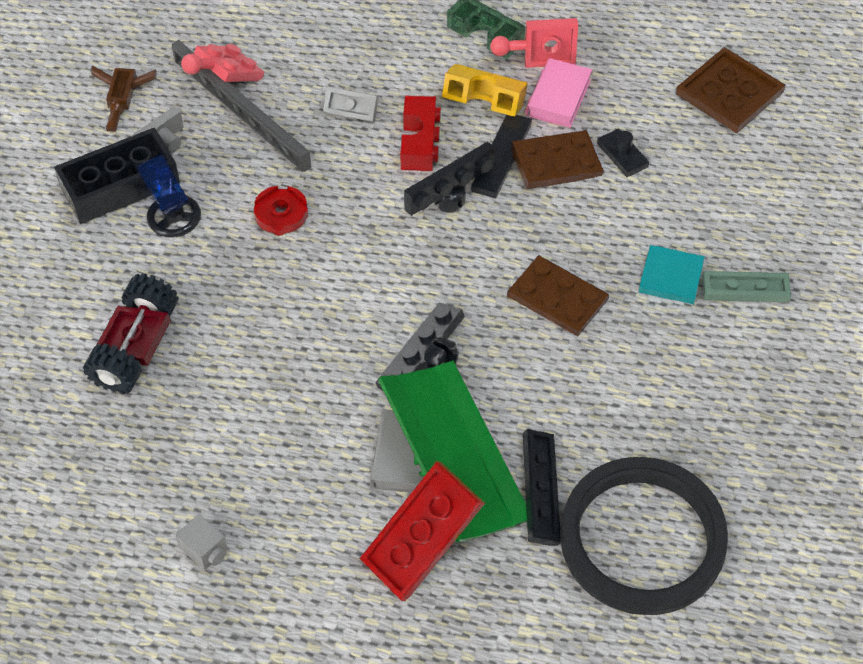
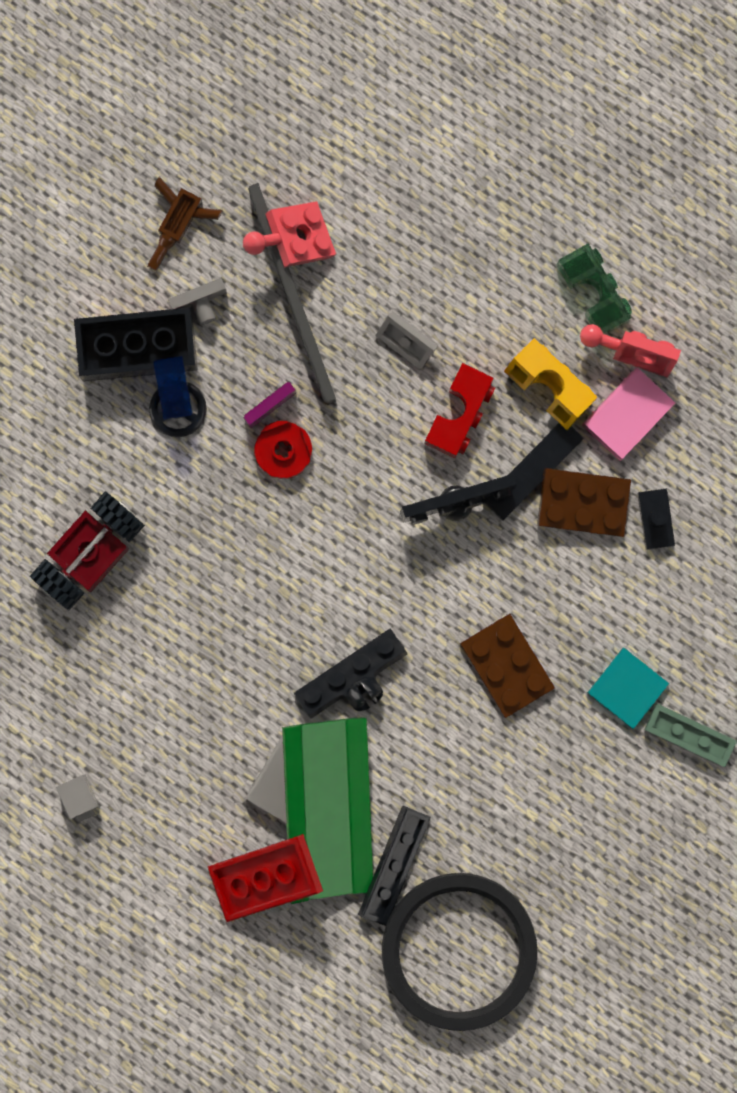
camera: 20 degrees right, 30 degrees up
(254, 181) = (269, 404): none -> magenta tile

